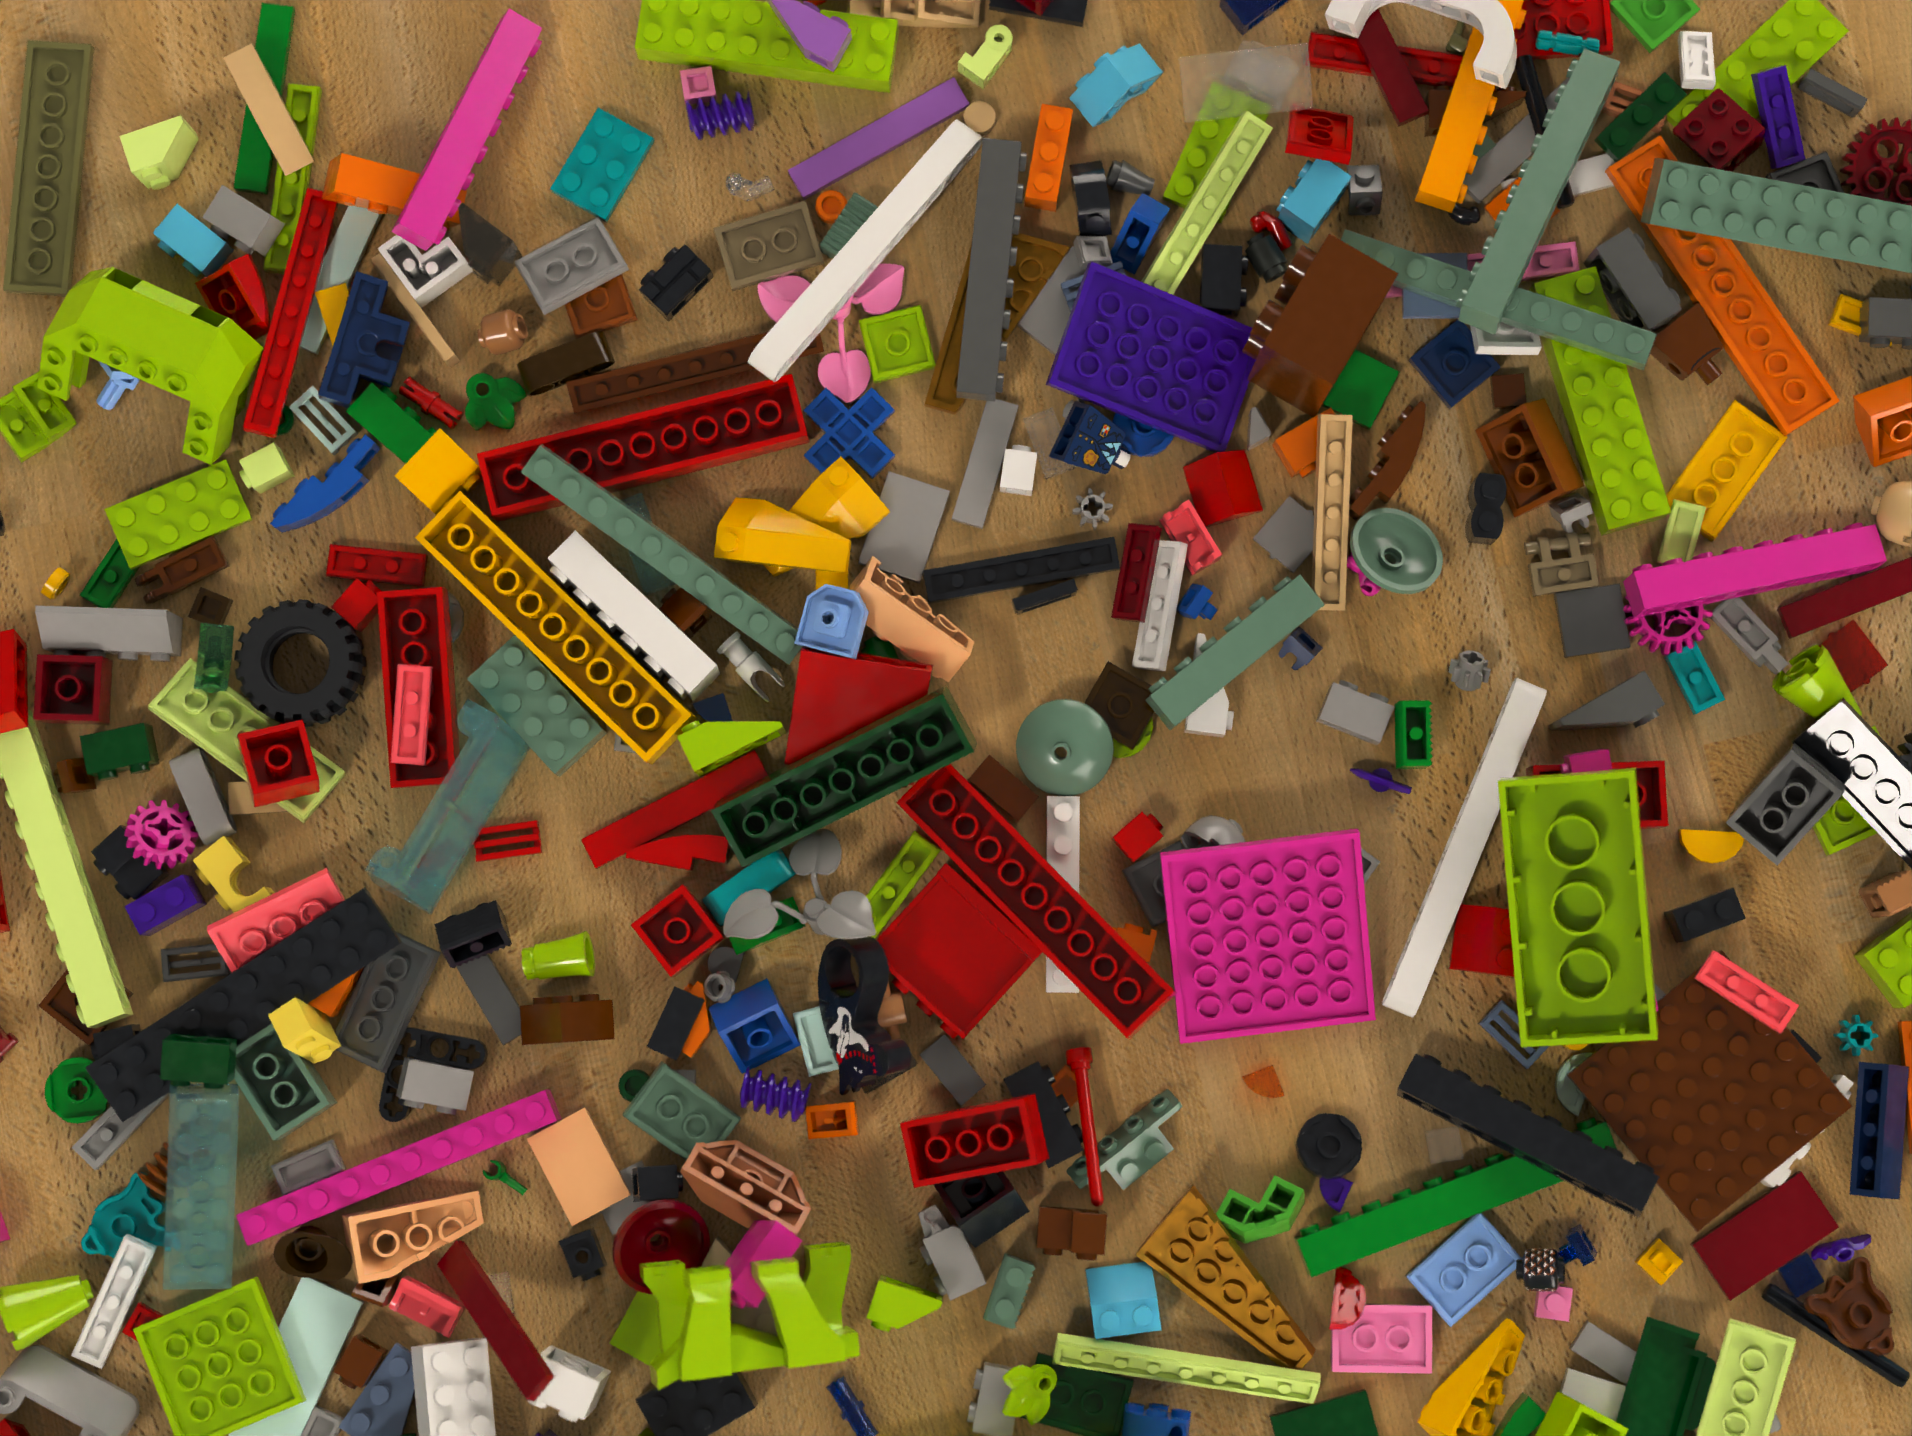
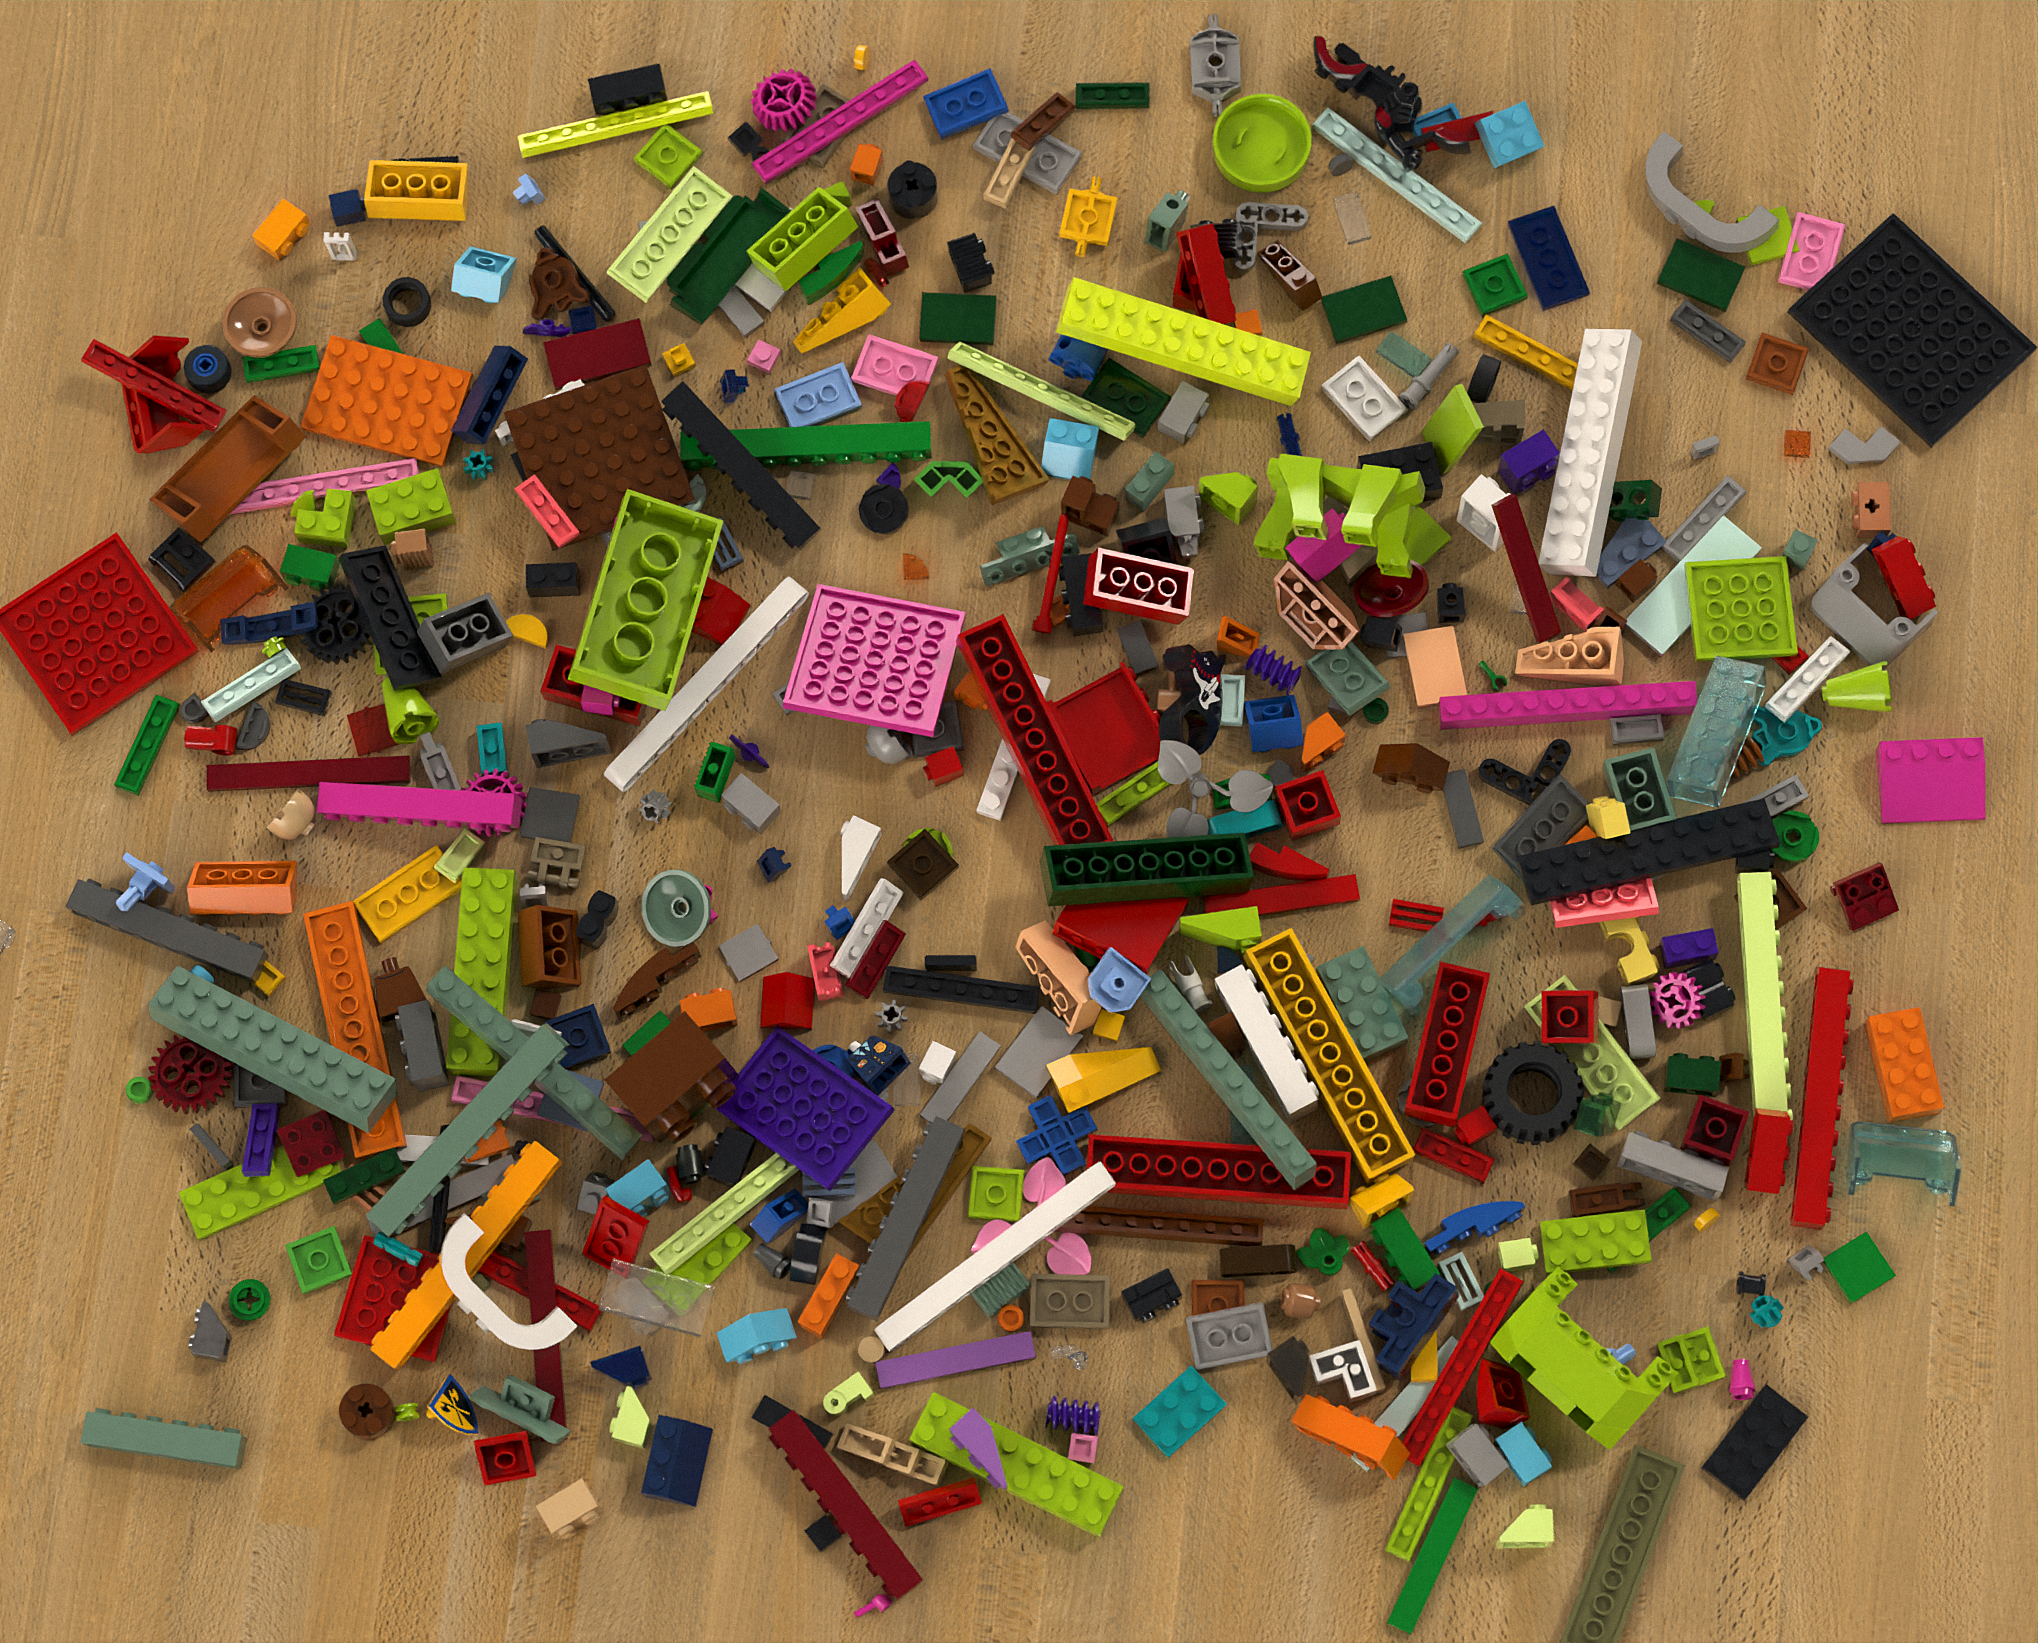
camera: 160 degrees left, 10 degrees down
(166, 965) = (1683, 894): dark grey tile -> none
(198, 1060) = (1691, 816): dark green brick -> none
(268, 109) = (1430, 1536): tan slope -> none
(313, 1255) = (1648, 662): dark brown piece -> none
(411, 714) = (1457, 1019): coral tile -> none
(434, 1085) = (1523, 753): light grey brick -> none
(467, 130) = (1275, 1461): dark pink brick -> none
(473, 934) = (1461, 853): black brick -> none
(560, 958) = (1402, 815): lime plant -> none
(675, 1023) = (1330, 737): black tile -> none
(713, 983) = (1295, 756): light grey plate -> none
(771, 536) = (1143, 1071): yellow wedge -> none
(1003, 788) = (1029, 834): reddish brown tile -> none
(1026, 1394) = (1158, 408): lime plate -> none
(1076, 729) = (973, 859): sand green dish -> none
(1234, 652) = (824, 868): sand green brick -> none
(1257, 429) = (746, 1034): light grey slope -> none
(1331, 509) = (714, 950): tan plate -> none
(1541, 1269) = (765, 376): black head -> none
(1696, 60) = (303, 1207): white plate -> none

